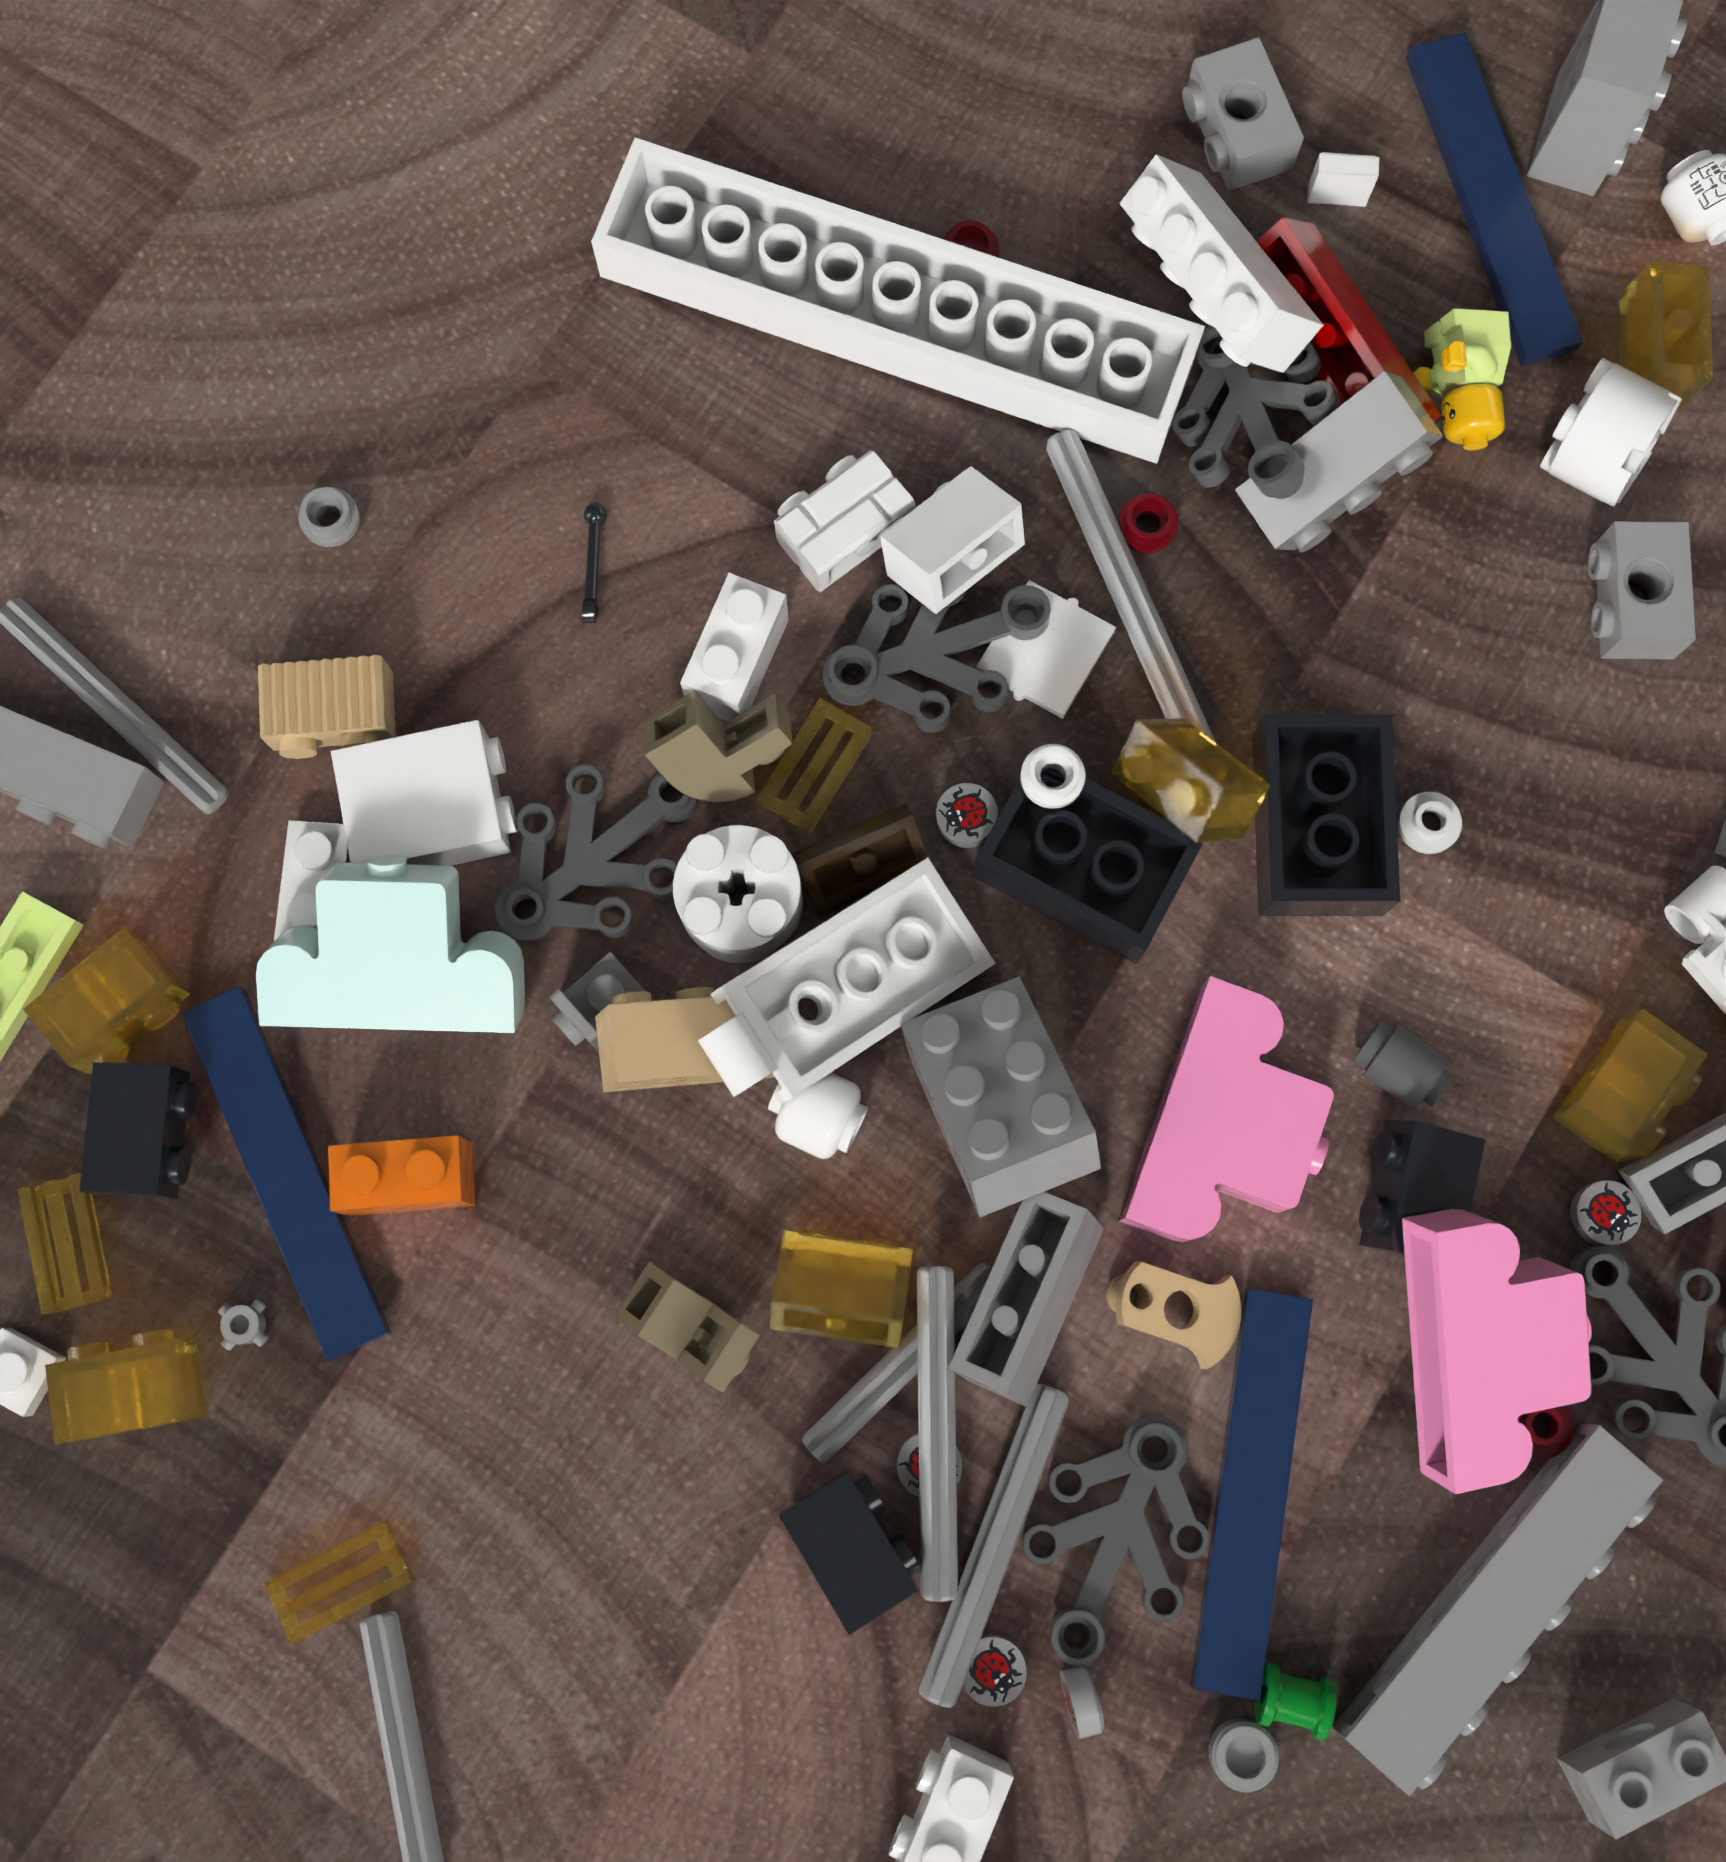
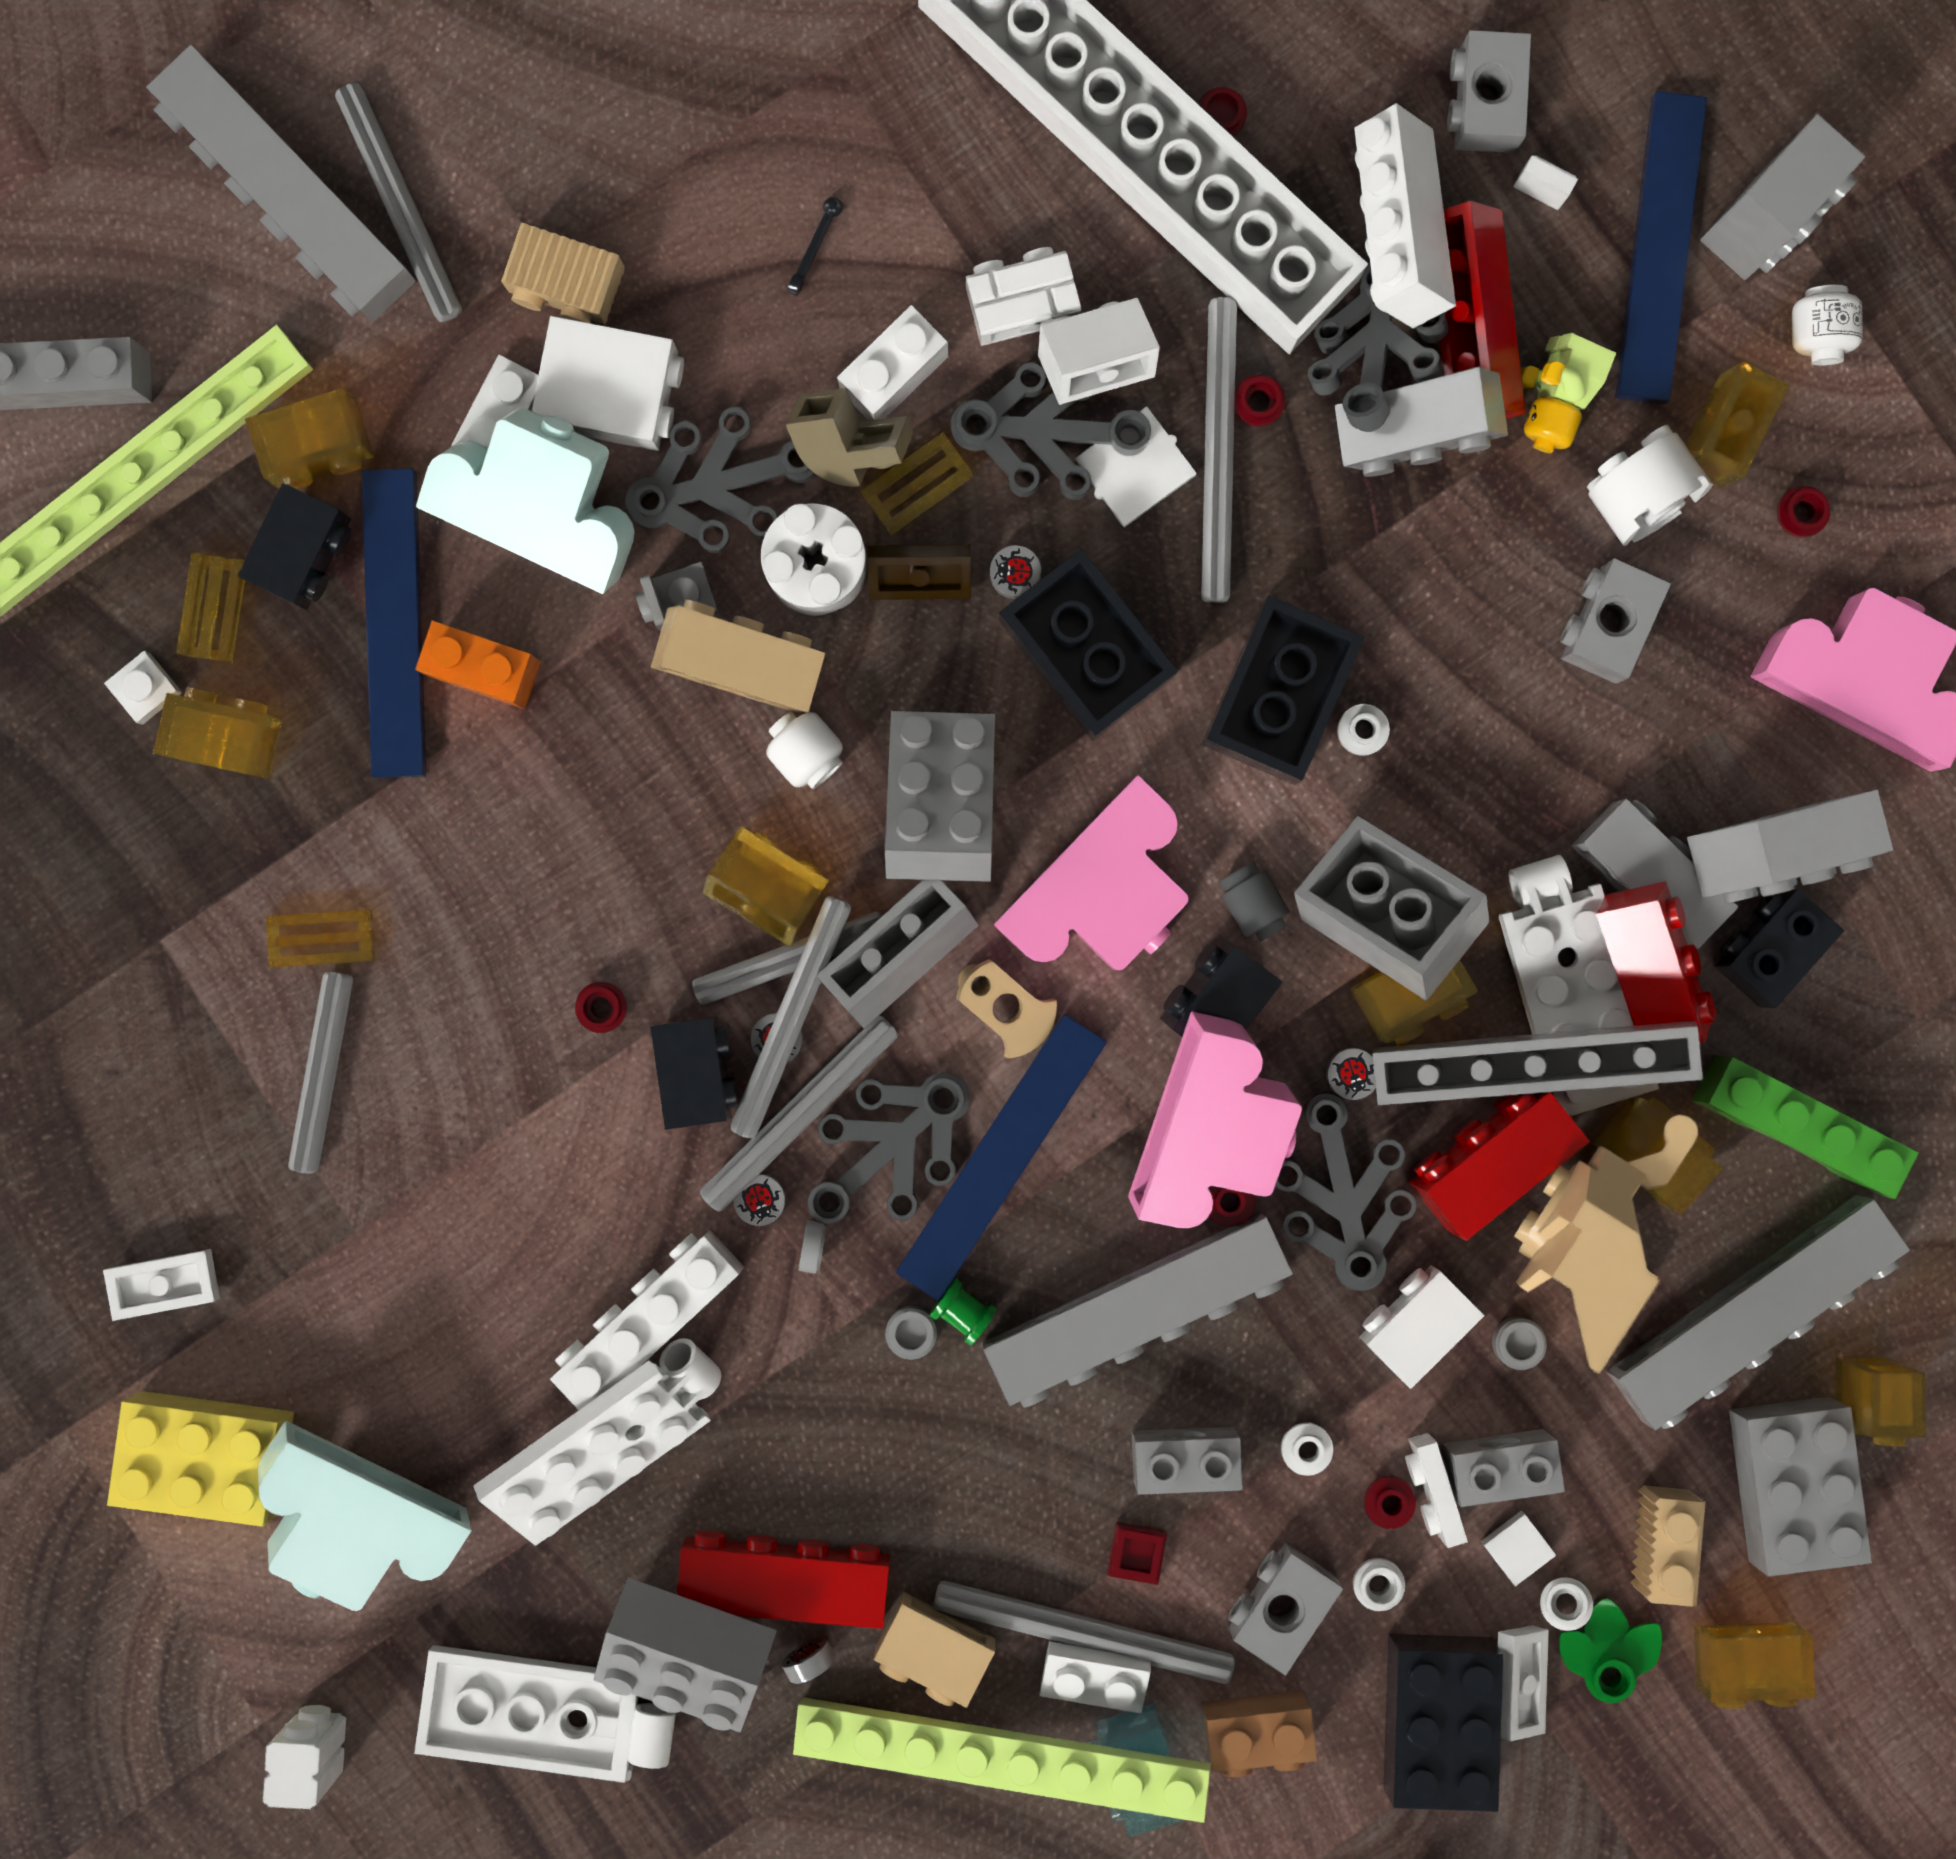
camera: 20 degrees right, 10 degrees up
(243, 1324) = (320, 724): light grey piece -> none
(317, 505) = (621, 105): light grey plate -> none
(687, 1327) = (642, 865): dark tan brick -> none
(689, 1530) = (586, 1014): none -> dark red plate
(862, 970) = (881, 662): white hinge -> none
(1058, 758) = (1084, 557): white plate -> none
(1190, 779) = (1190, 619): clear yellow brick -> none
(1570, 1000) = (1392, 907): none -> light grey brick

